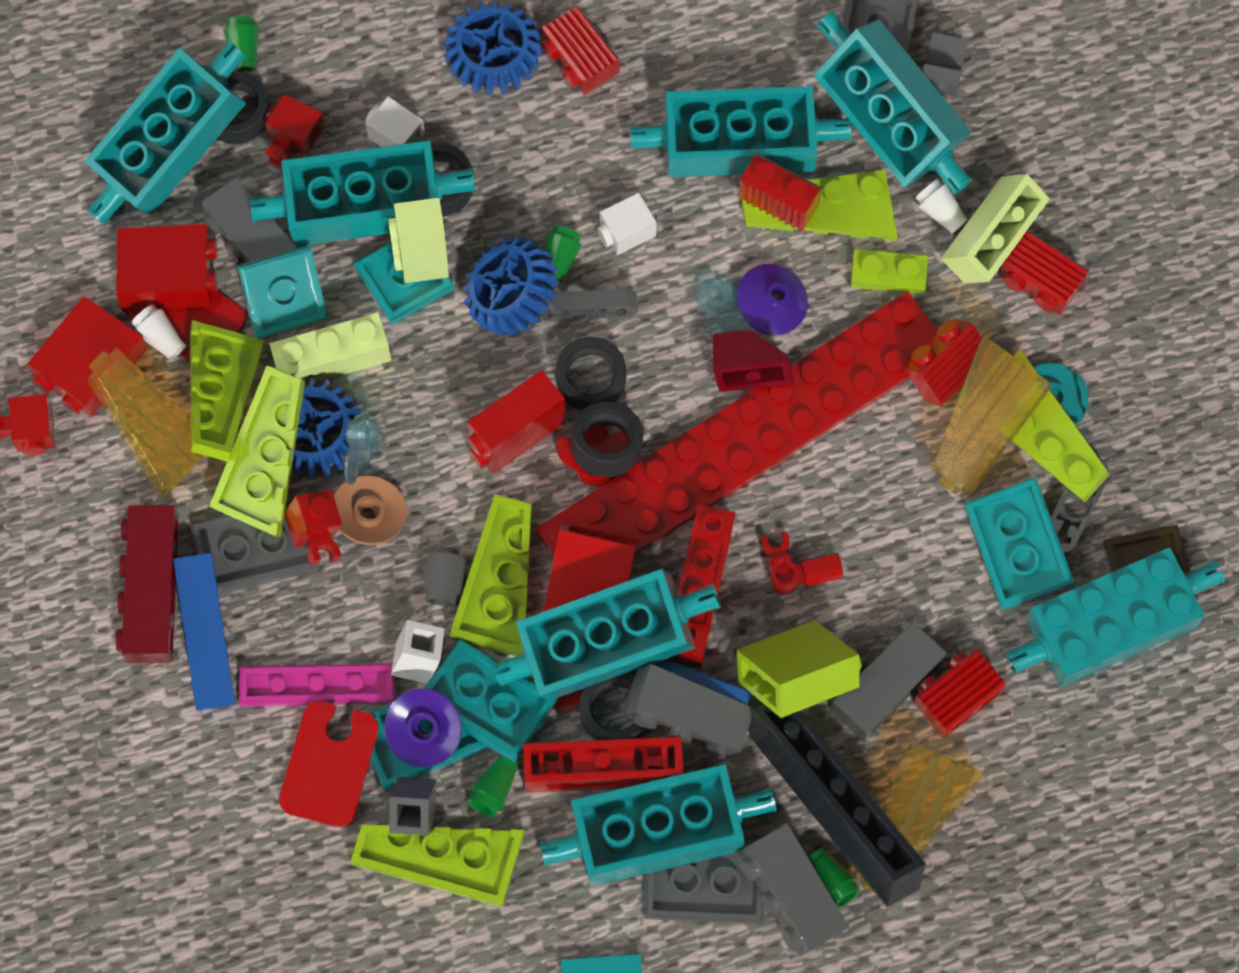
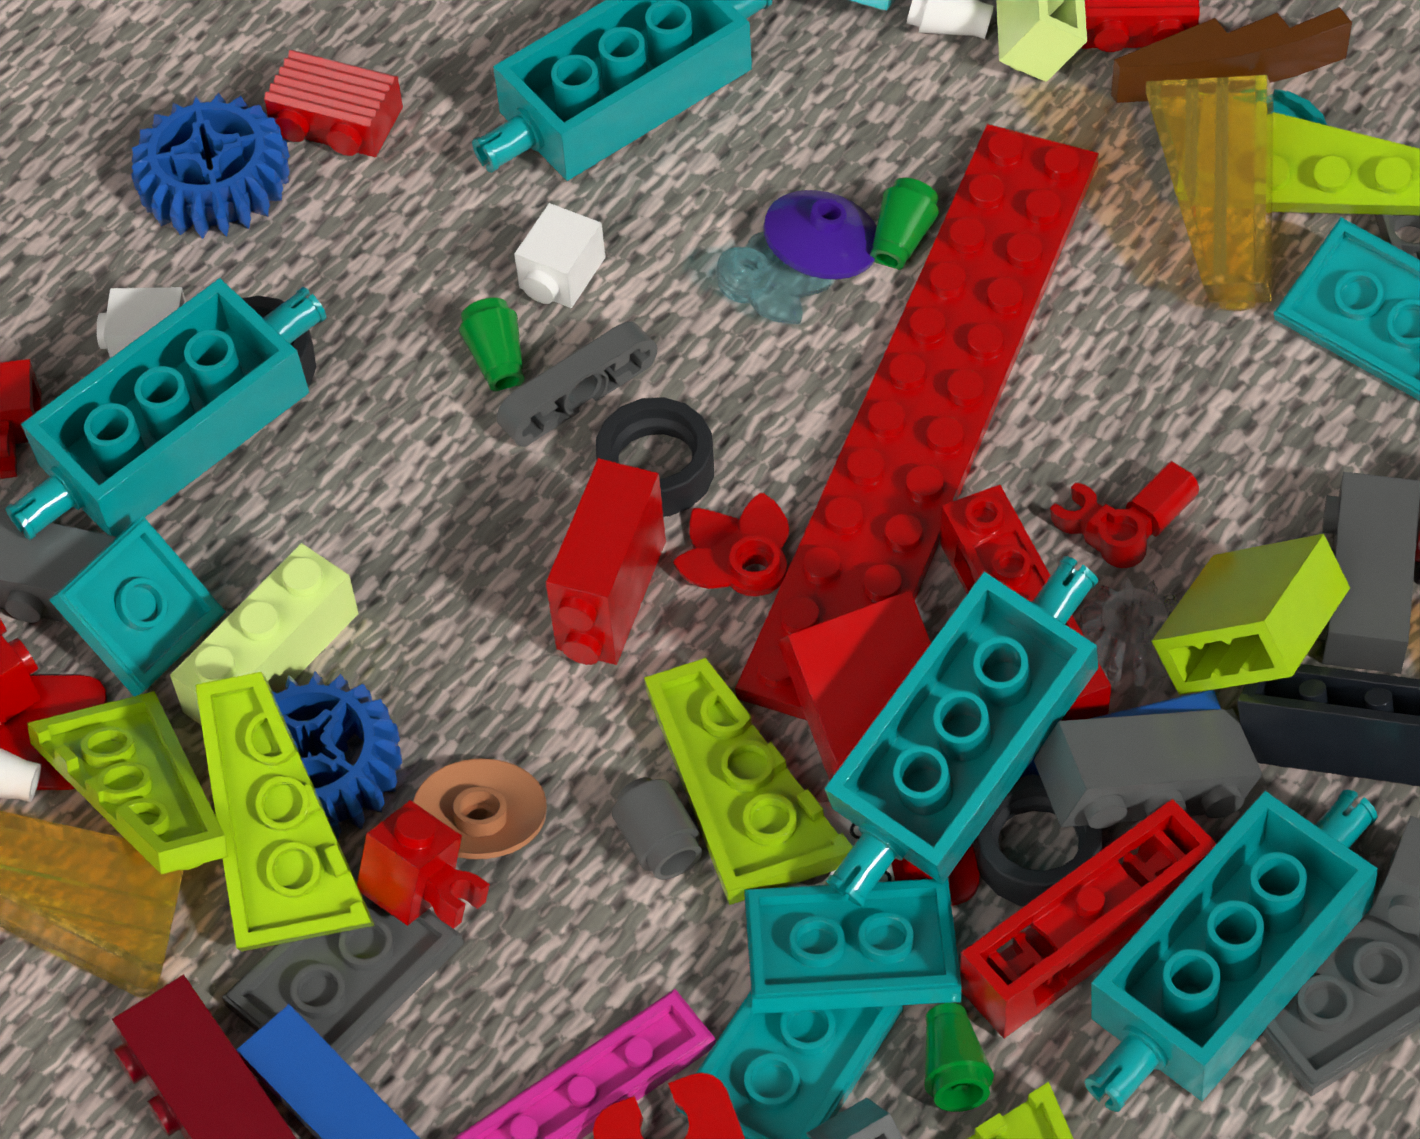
camera: 30 degrees left, 15 degrees down
(363, 440) = (401, 709): clear light blue plate -> none
(389, 288) = (295, 496): teal tile -> none
(405, 732) = (802, 996): dark purple dish -> none
(417, 651) = (702, 942): white brick -> none
(419, 240) = (299, 406): yellowish green brick -> none
(511, 286) = (481, 413): blue gear -> none
(608, 414) = (749, 542): black tyre -> none
(748, 362) = (860, 308): dark red slope -> none
(779, 192) = (736, 95): red brick -> none
(816, 321) = (903, 221): none -> green cone
(847, 206) = (799, 94): lime wing -> none
(889, 271) = (943, 120): lime plate -> none
(944, 362) = (1112, 161): red brick -> none
(1052, 333) = (1253, 50): none -> reddish brown slope

